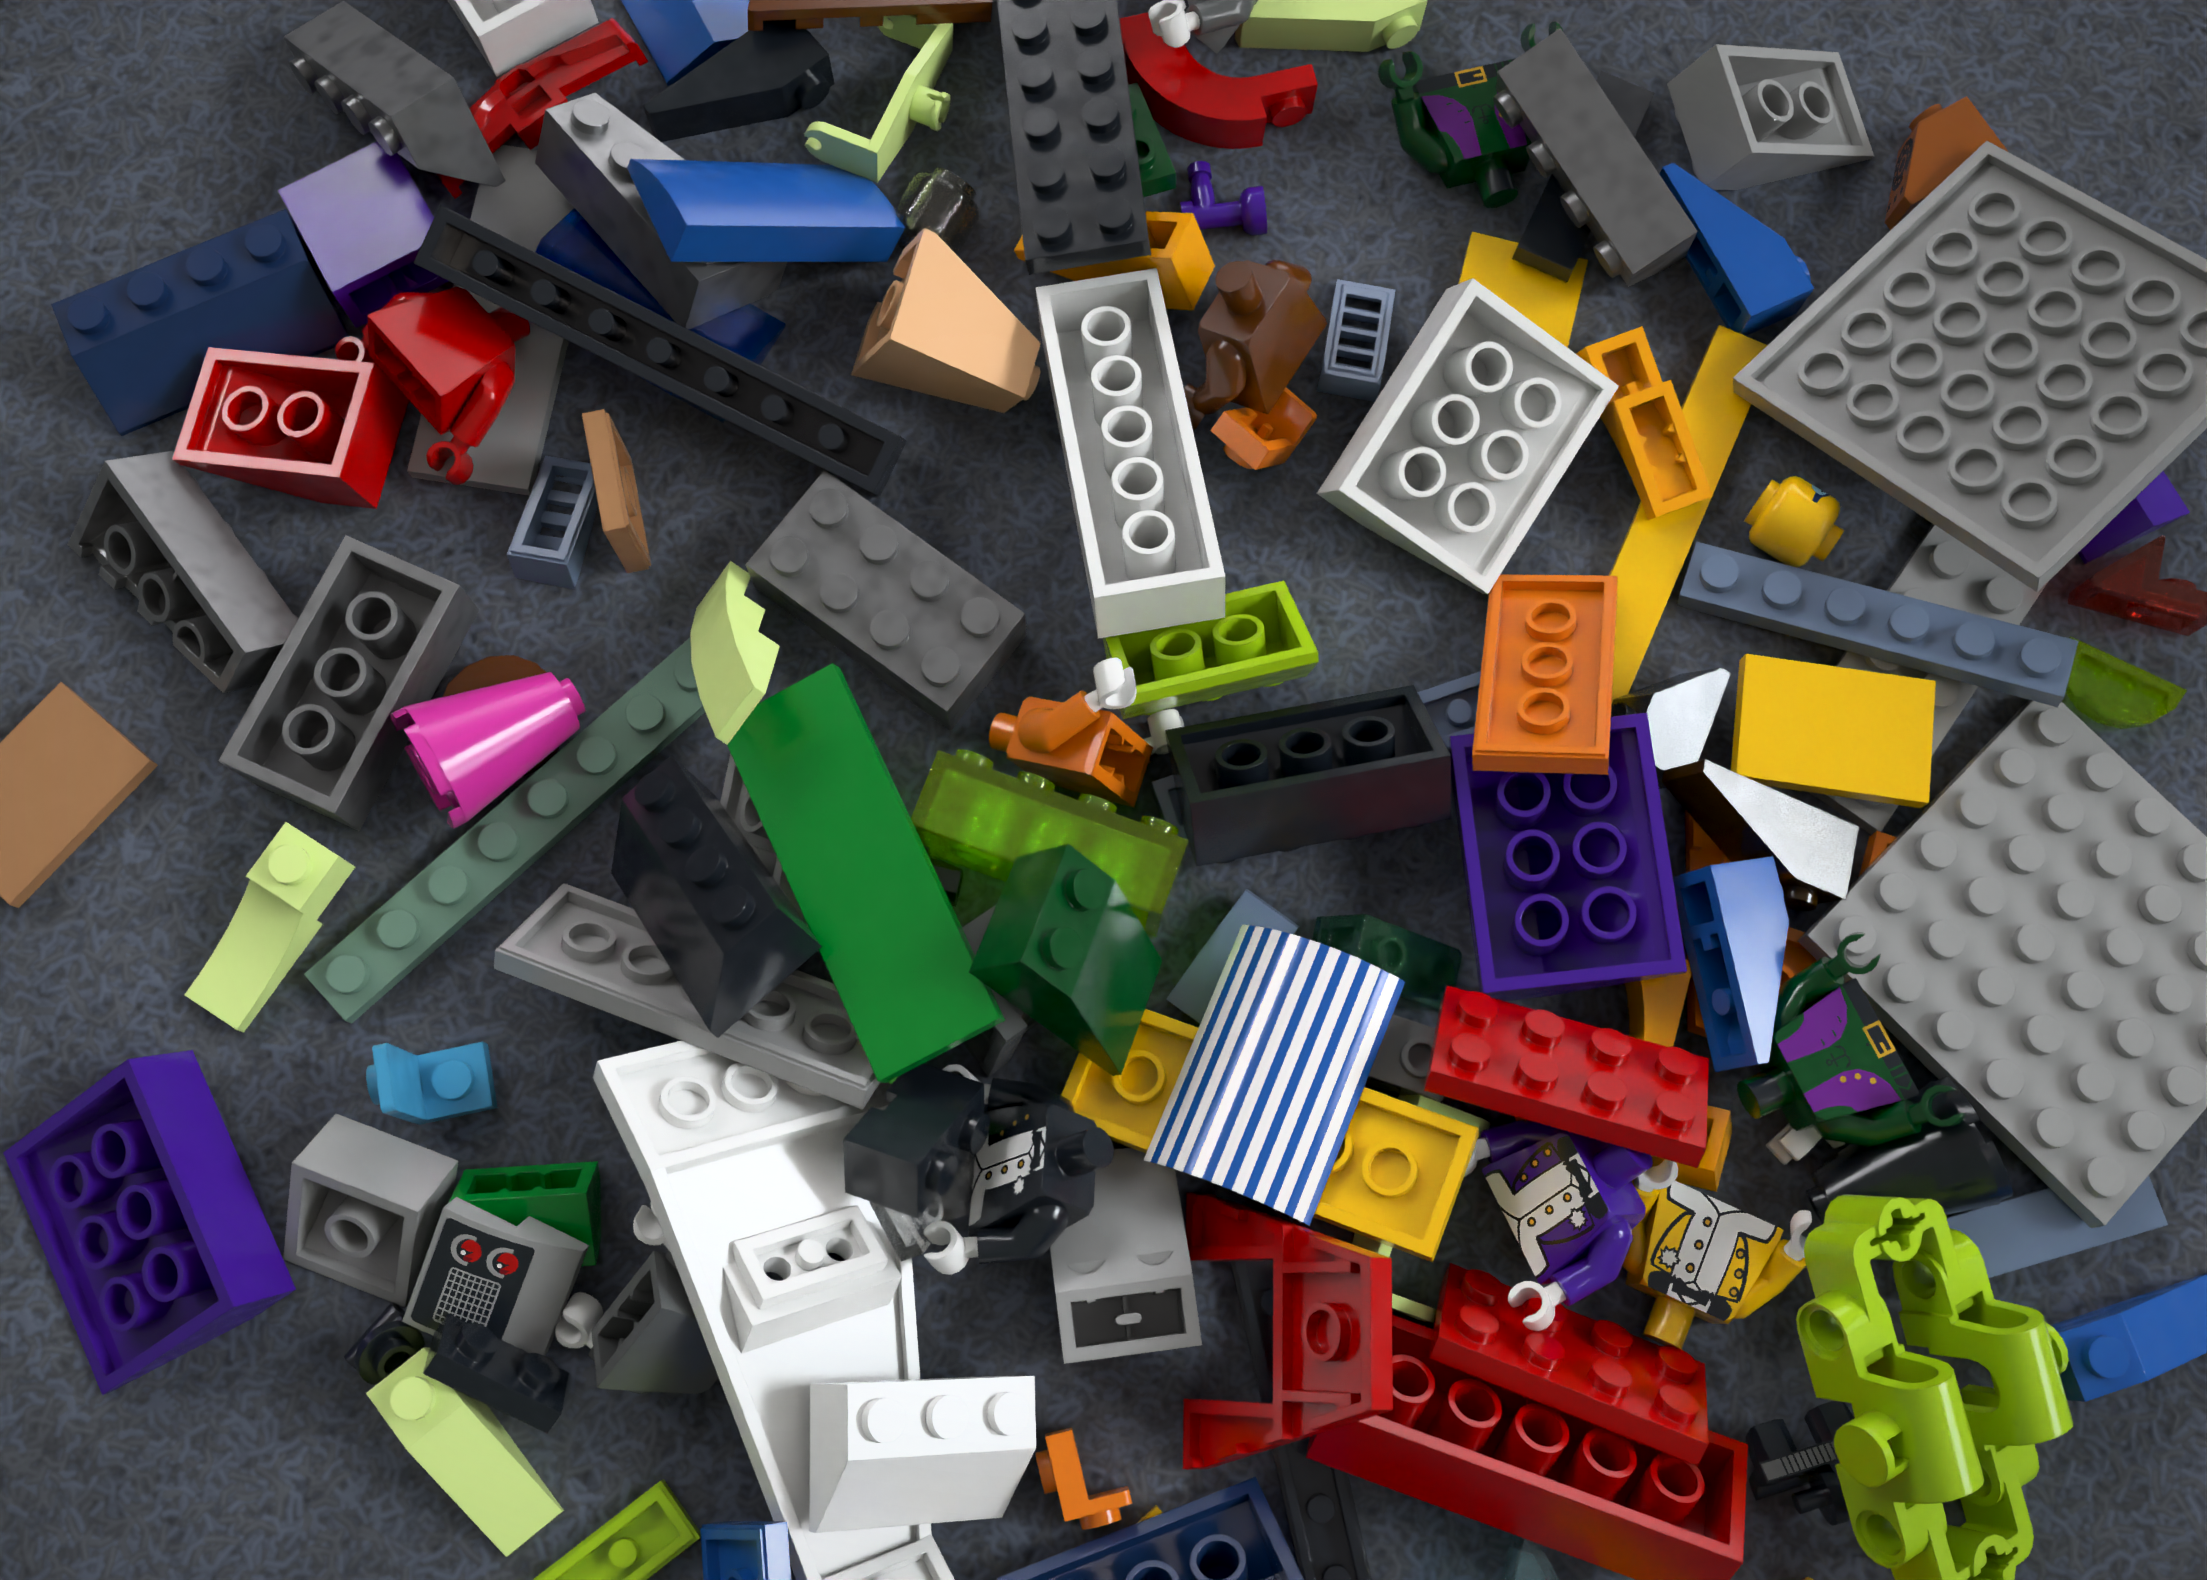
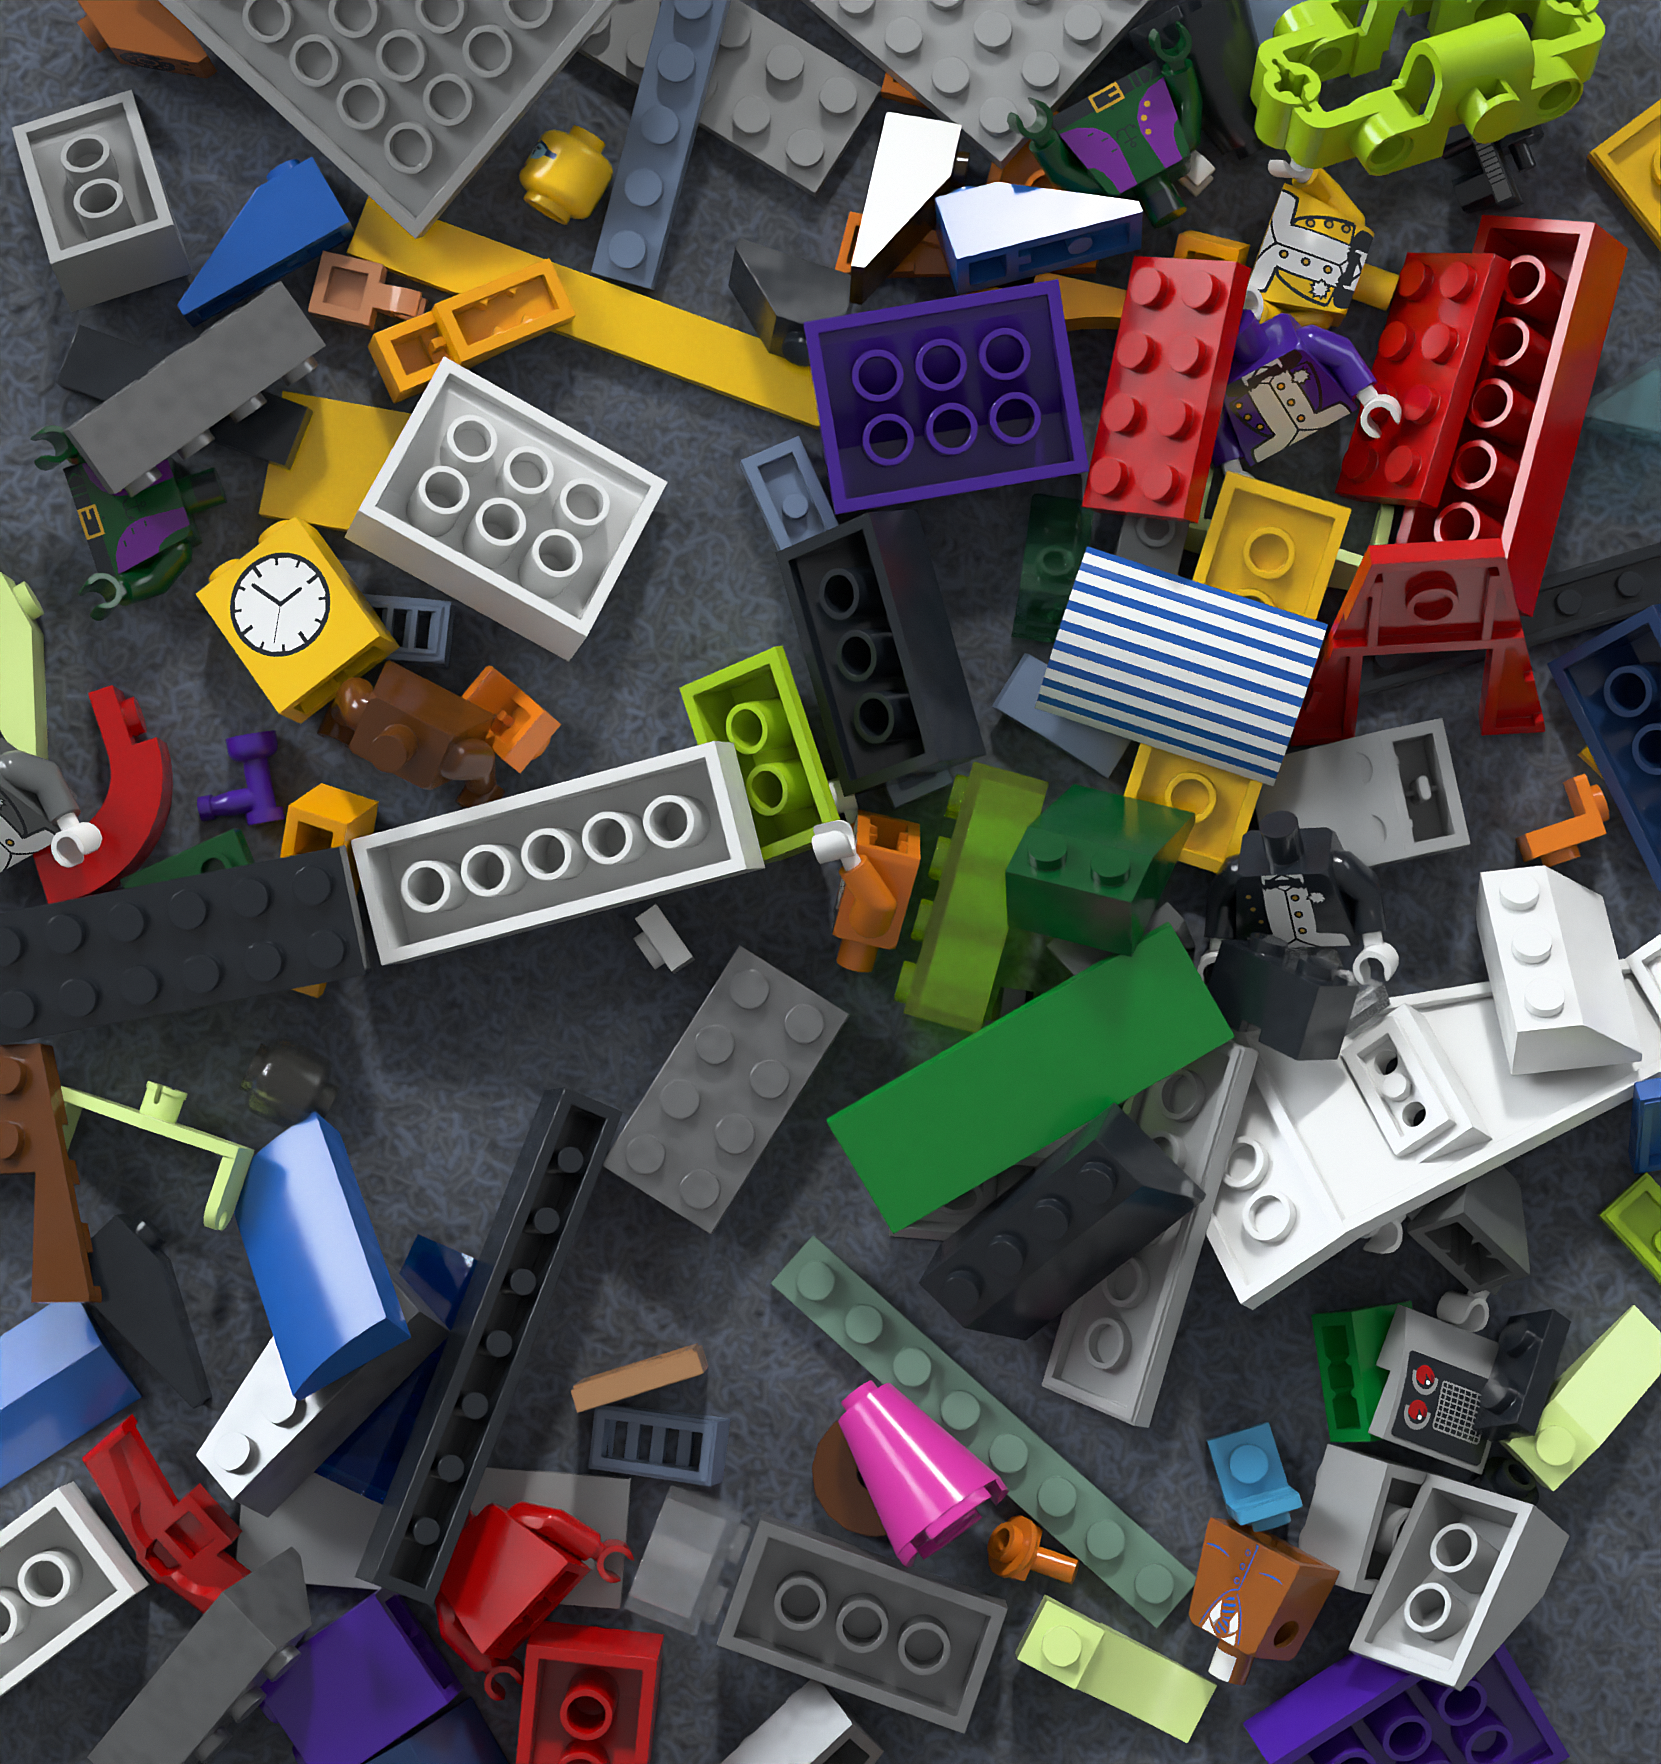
camera: 85 degrees left, 10 degrees up
(278, 1275) = (1458, 1582): none -> light grey slope
(307, 1070) = (1255, 1596): none -> dark orange torso
(402, 850) = (1022, 1553): none -> orange plate
(441, 529) = (686, 1558): none -> clear brick
(729, 653) = (818, 1233): yellowish green slope -> none
(947, 333) = (428, 1059): light nougat slope -> none
(1039, 555) = (661, 942): none -> white plate
(1371, 247) = (296, 618): none -> yellow brick
(1547, 675) = (760, 420): orange tile -> none
(1681, 329) = (355, 291): none -> nougat plate
(1834, 730) = (788, 136): yellow tile -> none

